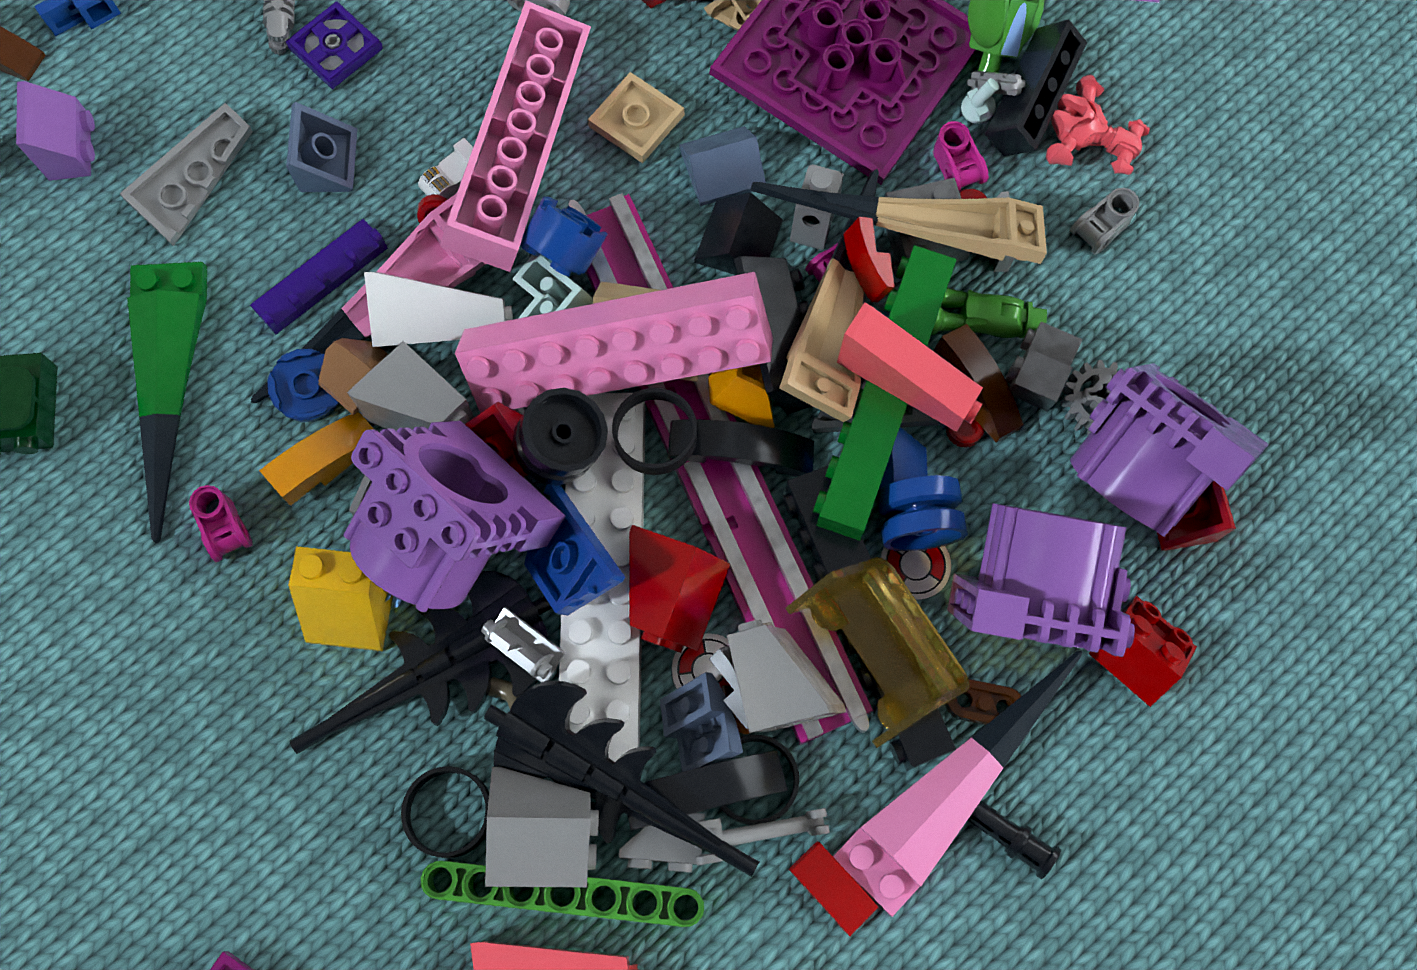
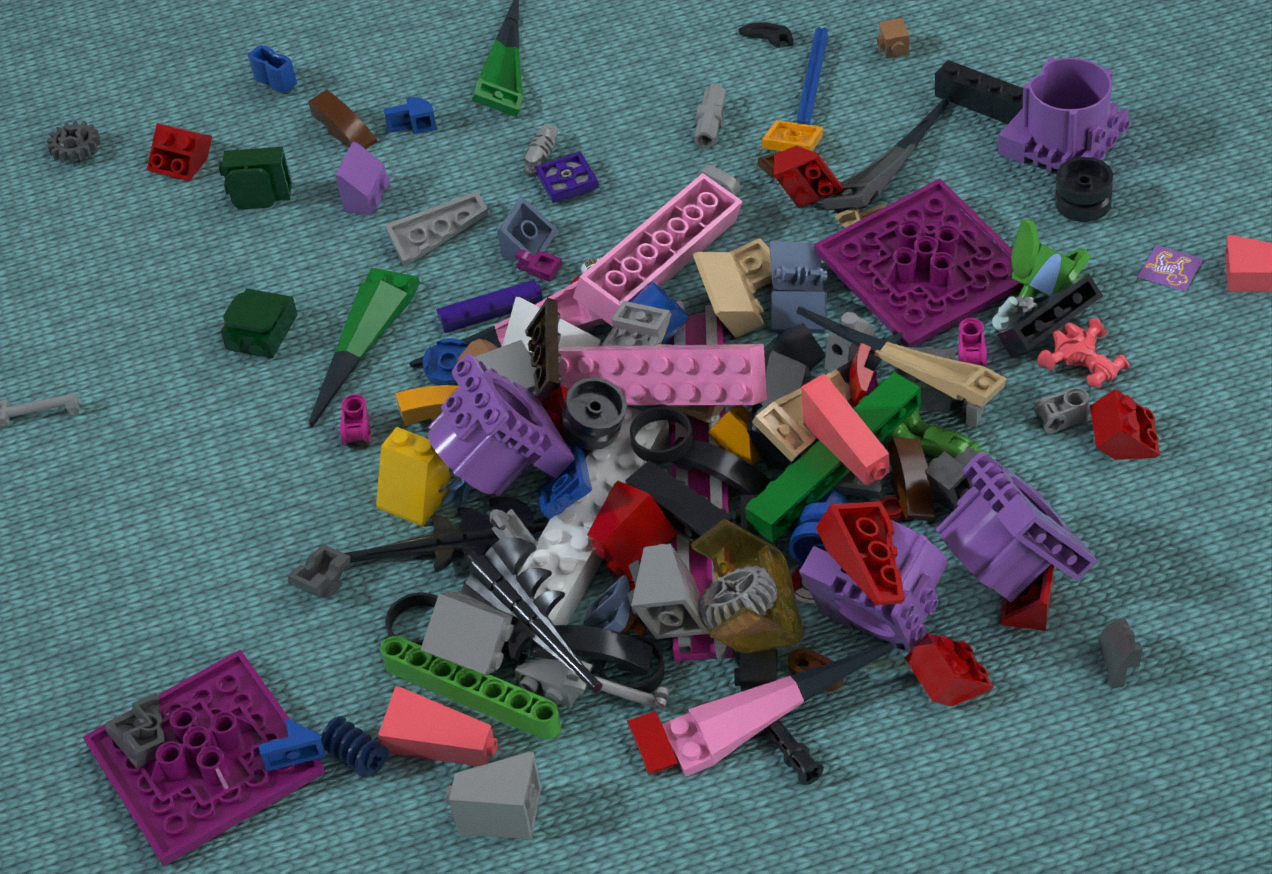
camera: 30 degrees right, 25 degrees down
(281, 786) = (321, 572): none -> dark grey cylinder
(361, 193) = (540, 265): none -> magenta plate
(446, 344) = (544, 344): none -> dark brown wing
(553, 276) = (637, 328): none -> light grey slope
(636, 170) = (730, 291): none -> tan slope
(697, 104) = (796, 267): none -> sand blue hinge
(724, 530) = (684, 508): none -> black brick
(879, 641) = (741, 588): none -> light grey gear
(1049, 577) = (863, 546): none -> red wedge
(1187, 225) = (1124, 427): none -> red slope
(1329, 552) = (1119, 651): none -> dark grey slope

